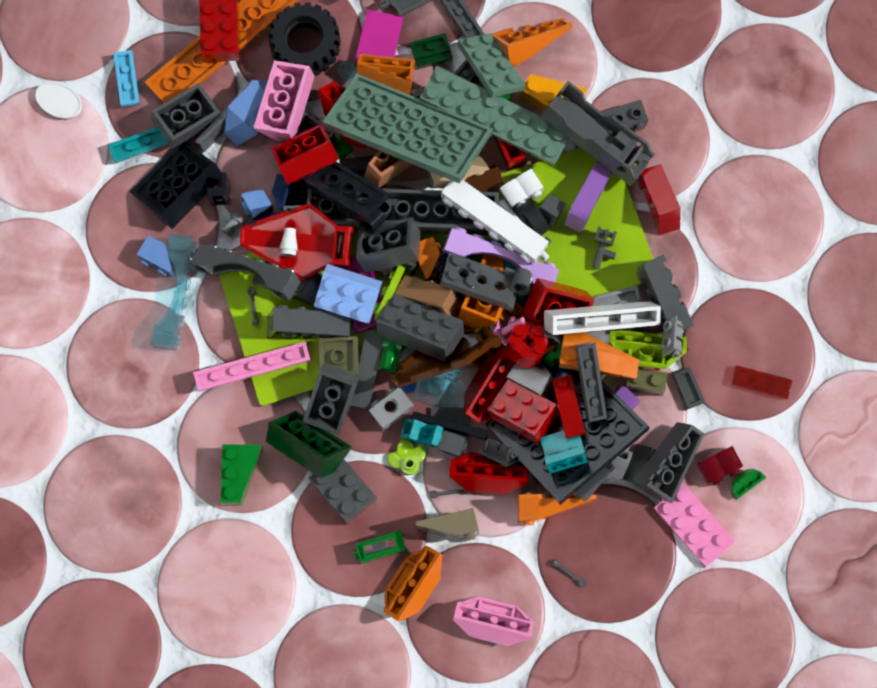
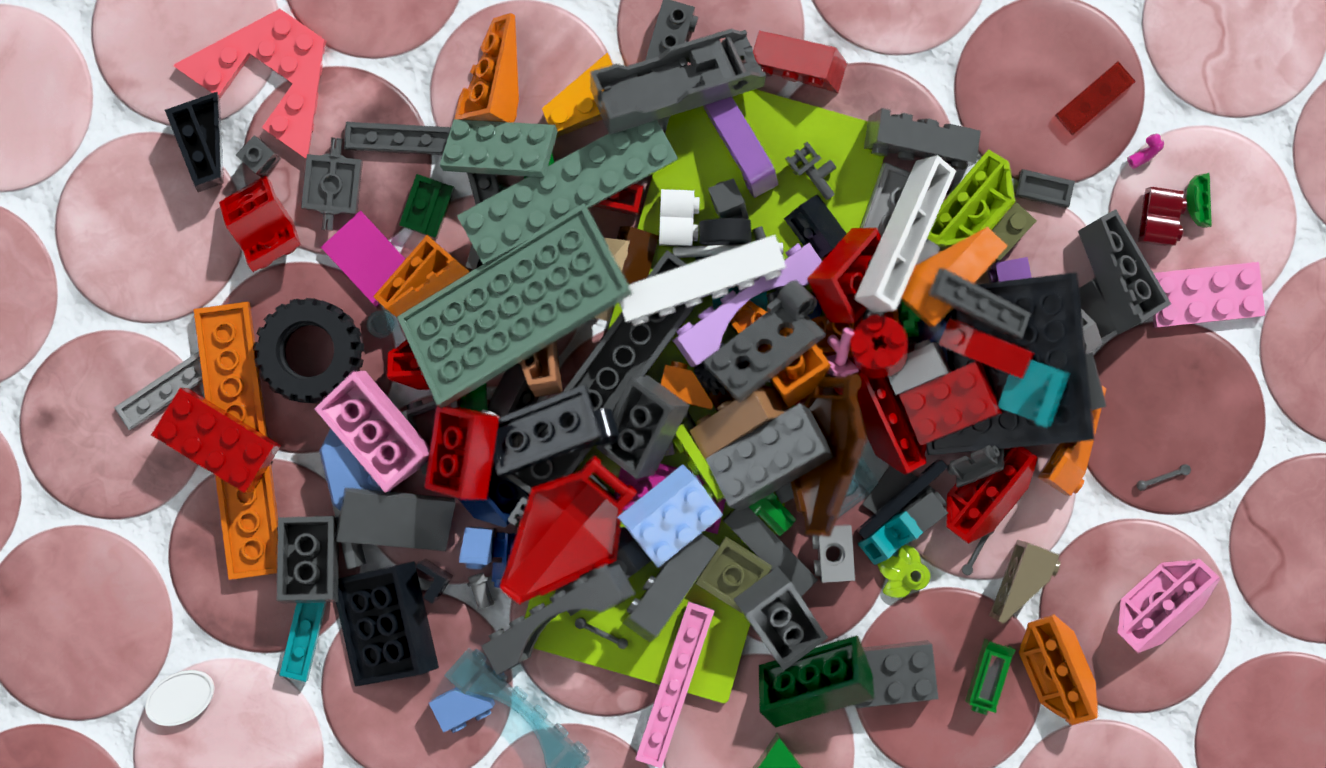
camera: 50 degrees left, 10 degrees up
(126, 78) = (208, 598): medium azure plate -> none
(241, 147) = (395, 519): none -> dark grey tile
(289, 243) = (560, 545): white cone -> none
(573, 269) = (815, 225): none -> black panel
(671, 332) = (975, 163): light grey hinge -> none
(751, 434) = (1141, 157): none -> dark pink arm

